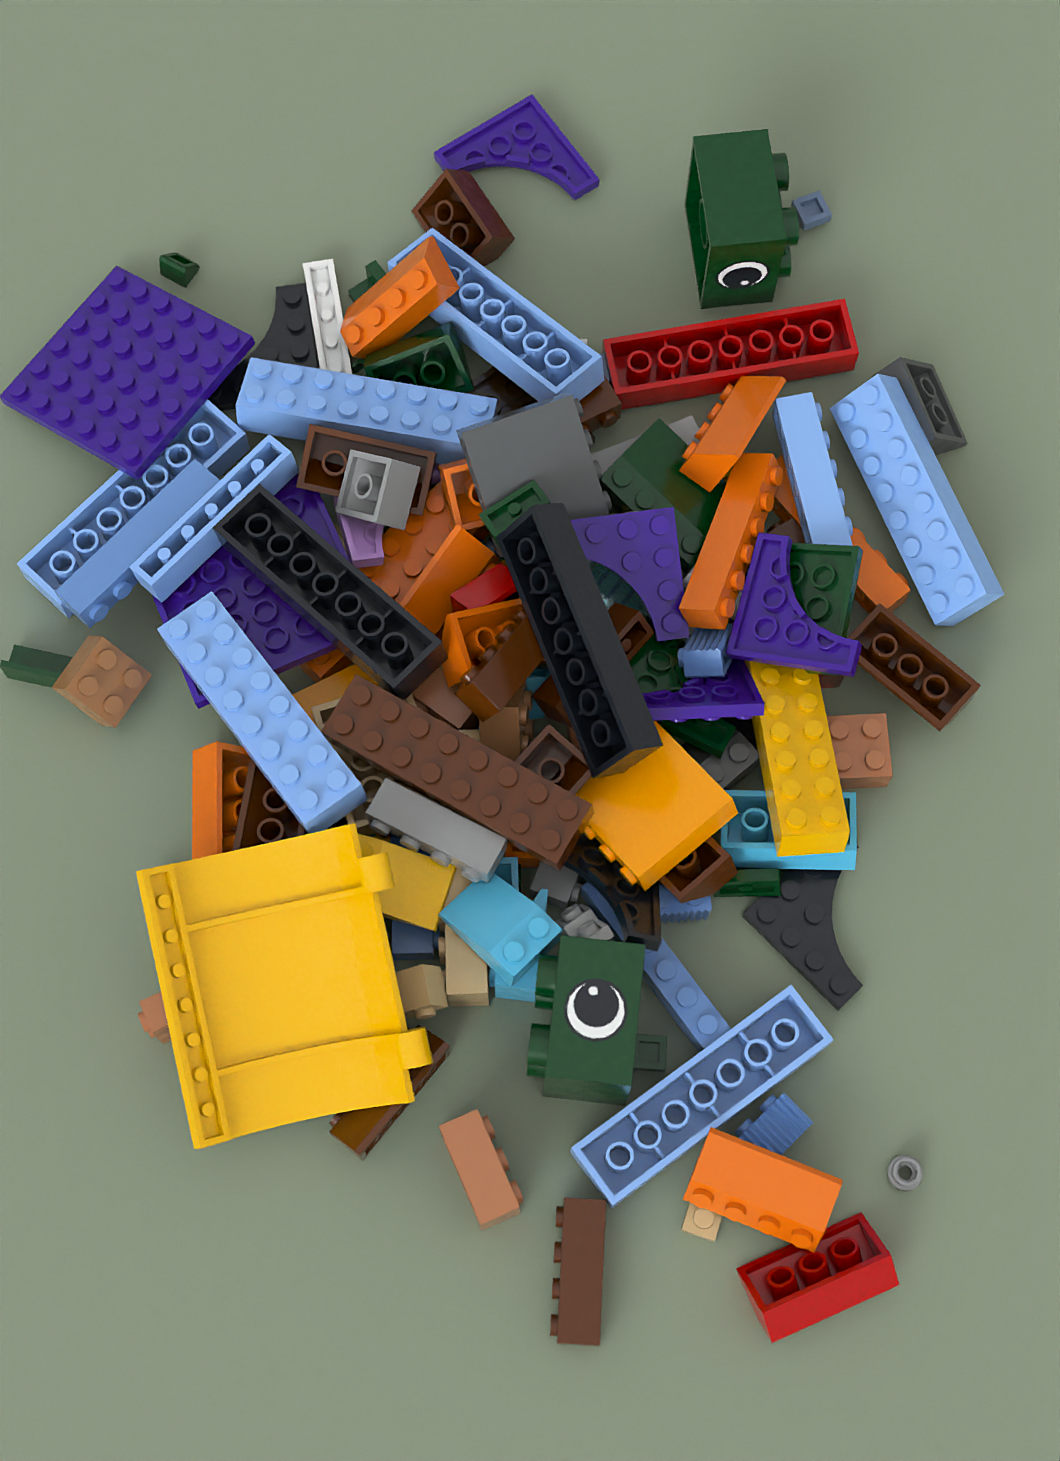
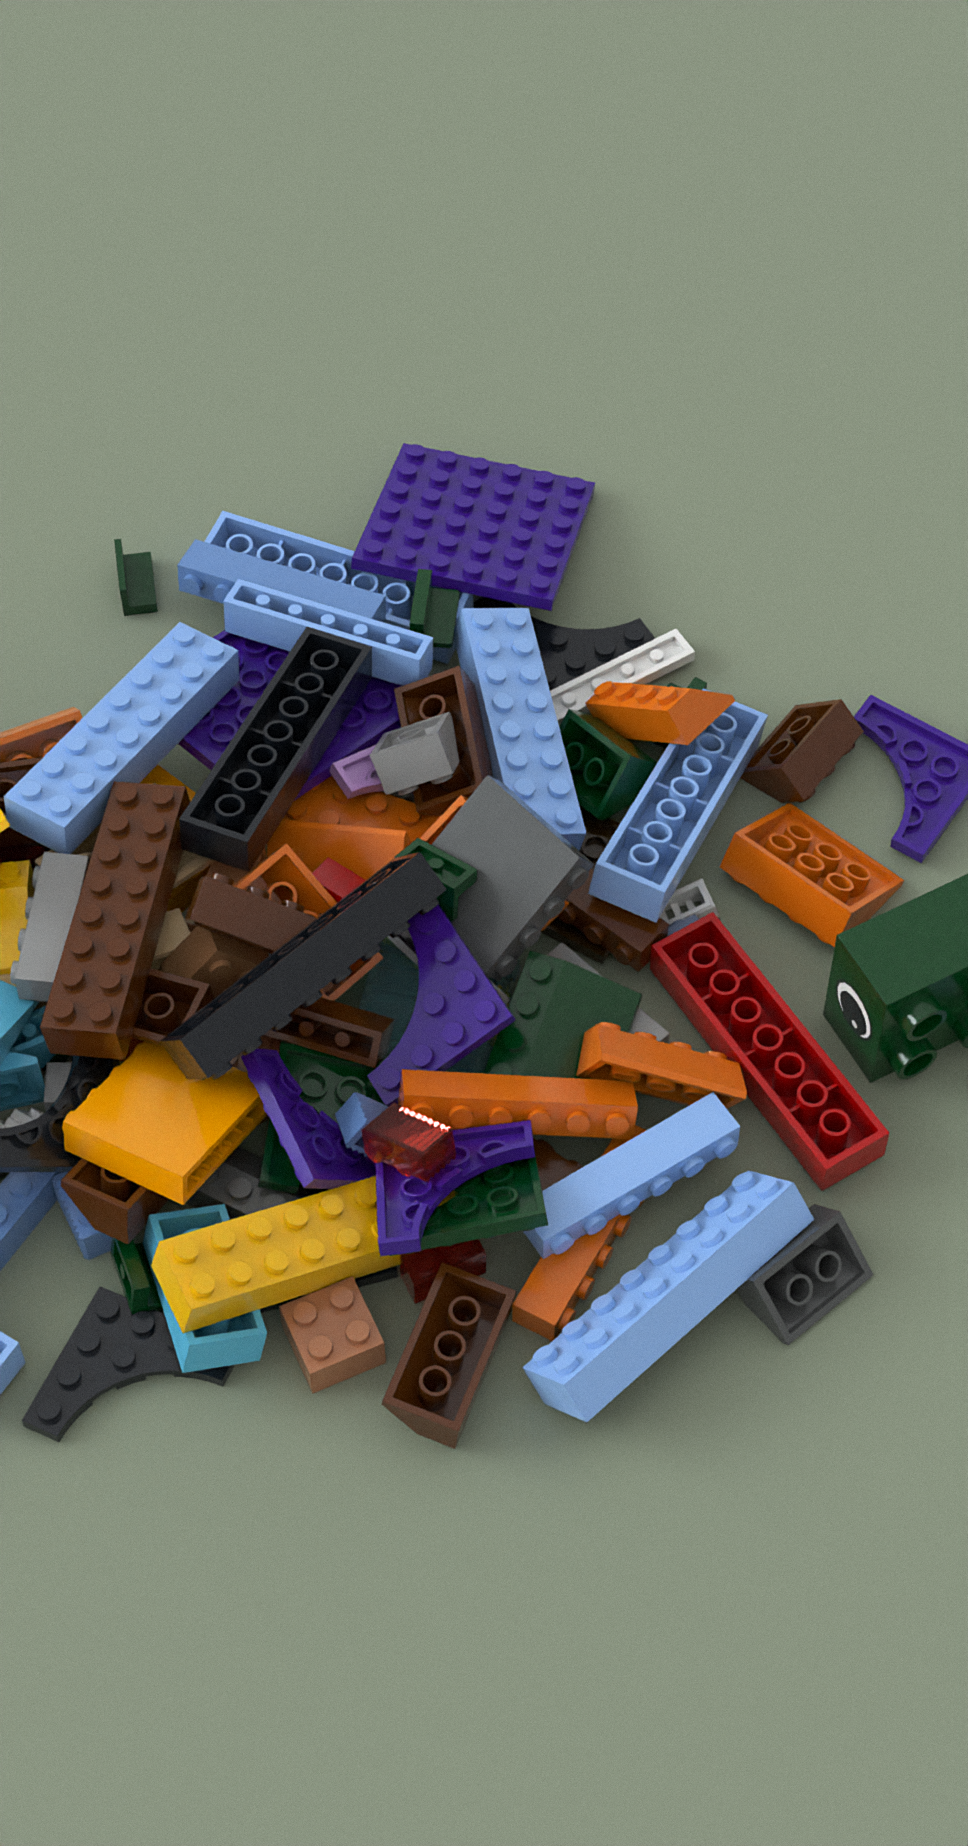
camera: 70 degrees right, 15 degrees down
(101, 681) = (129, 621): medium nougat brick -> none
(178, 268) = (621, 533): dark green slope -> none
(219, 432) = (434, 610): none -> dark green panel
(581, 262) = (809, 872): none -> orange slope
(755, 623) = (409, 1142): none -> clear red brick

